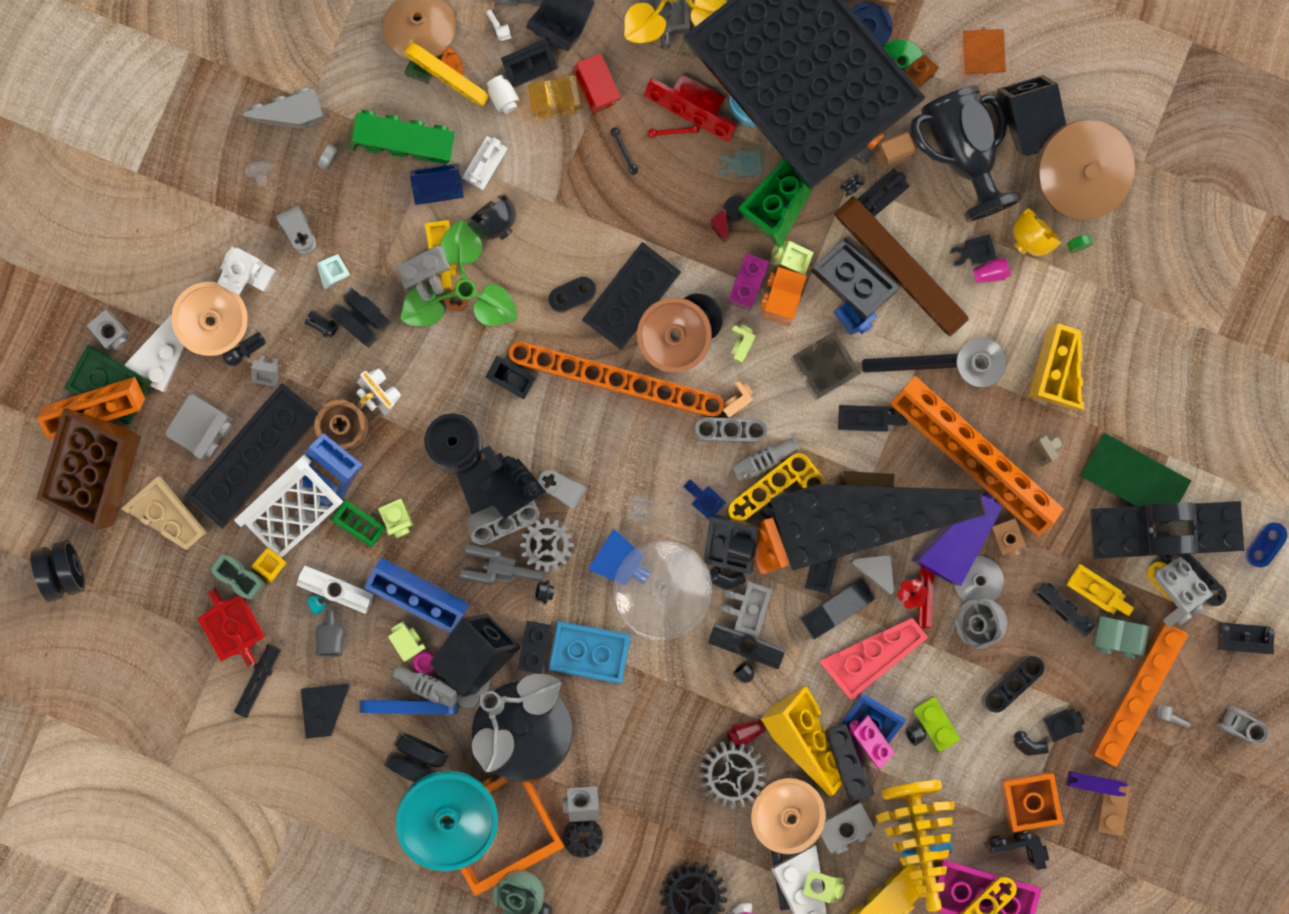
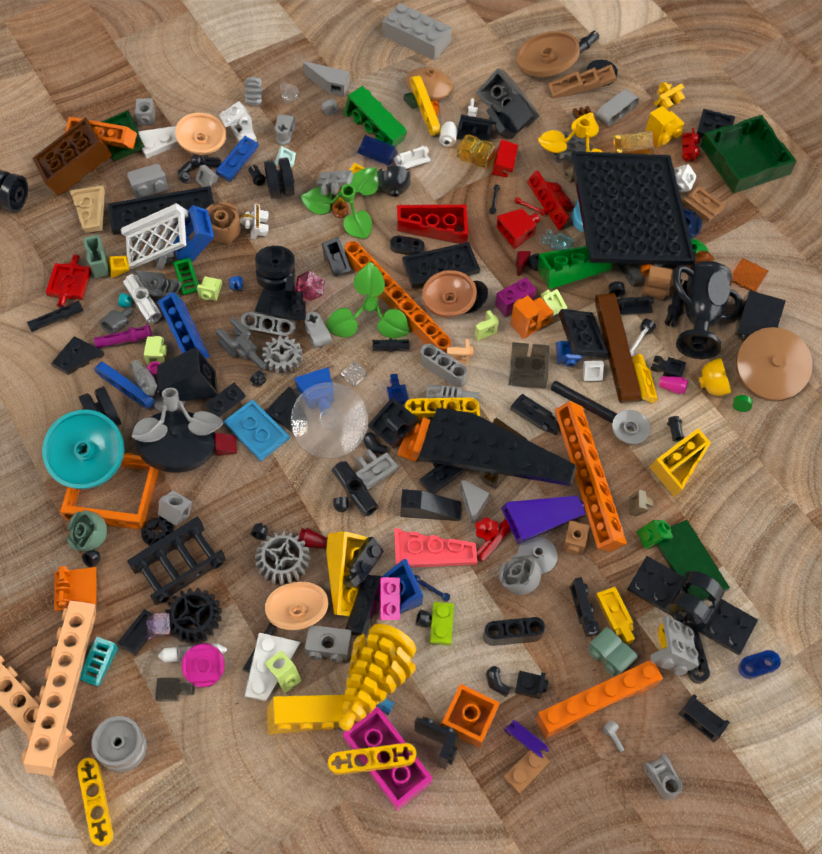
camera: 35 degrees right, 25 degrees down
(217, 205) = (253, 91): none -> light grey gear
(230, 384) = (183, 173): none -> black arm
(278, 317) = (237, 158): none -> blue tile
(339, 559) = (158, 284): none -> dark grey hinge
(364, 641) = (132, 335): none -> magenta pin
(419, 490) = (236, 282): none -> blue hinge
(515, 437) = (310, 285): none -> clear pink brick
(573, 692) = (225, 444): none -> dark red slope
(588, 241) = (434, 221): none -> red wedge
(592, 409) = (369, 282): none -> bright green plant
(599, 605) = (282, 408): none -> black wing
(615, 836) = (159, 551): none -> black fence
(653, 443) = (390, 345): none -> black pin
(681, 176) = (517, 226): none -> red torso
(685, 761) = (259, 531): none -> black hinge
(818, 724) = (363, 562): none -> black hinge
(895, 318) = (593, 370): none -> white tile
(917, 215) = (646, 327): none -> hinge
(919, 693) = (445, 596): none -> dark blue hinge
(931, 166) = (675, 308): none -> black pin
(956, 288) = (644, 379): none -> yellow hinge
(1027, 327) = (675, 427): none -> black pin
(1083, 474) = (654, 533): none -> green bracket

